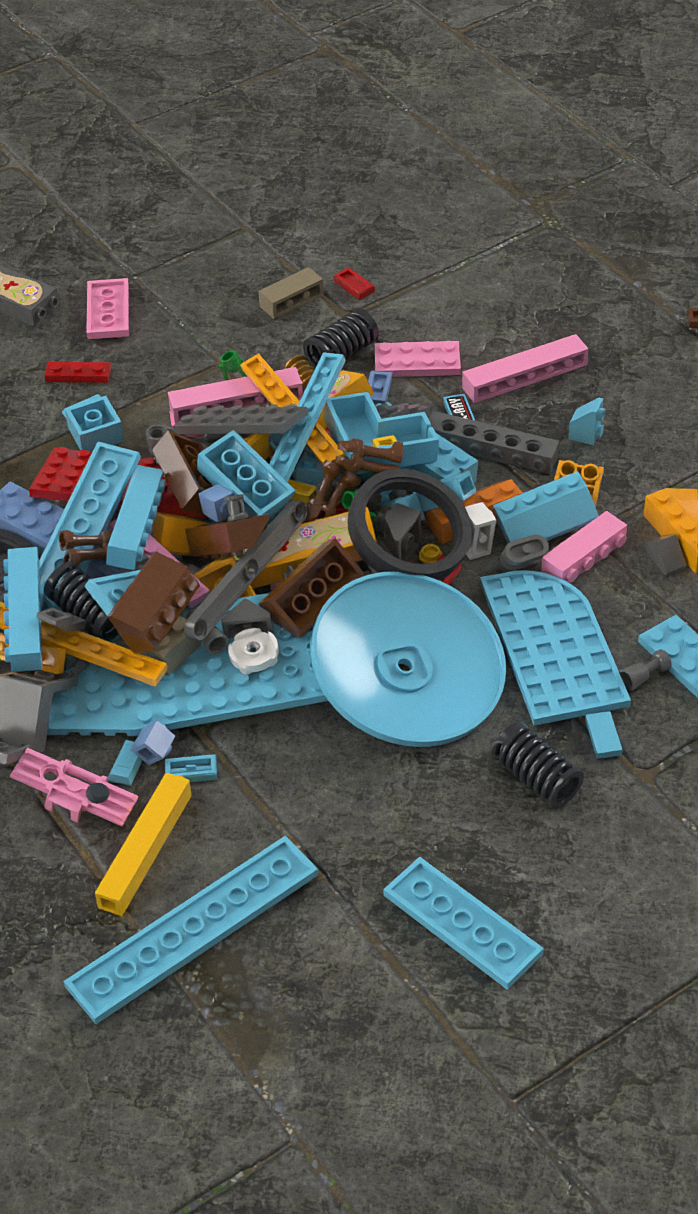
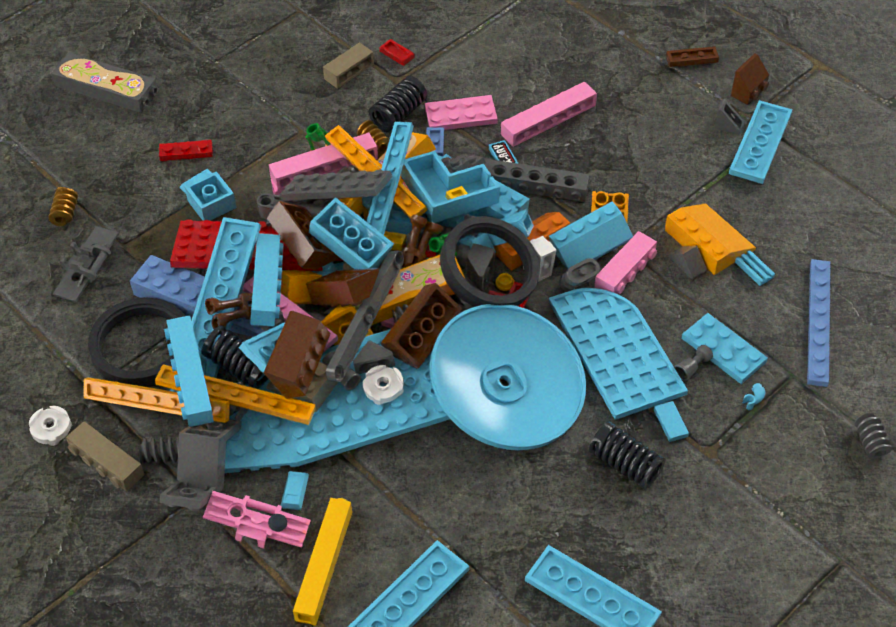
camera: 10 degrees left, 5 degrees up
(62, 620) = (223, 377): dark grey slope -> none
(107, 308) = (200, 92): bright pink plate -> none
(153, 742) = (313, 471): medium blue brick -> none
(192, 771) = (349, 493): medium azure tile -> none
(213, 503) = (331, 260): medium blue brick -> none
(236, 507) = (348, 263): dark grey bush -> none
(359, 450) = (441, 204): reddish brown piece -> none
(586, 422) = (607, 157): medium azure slope -> none

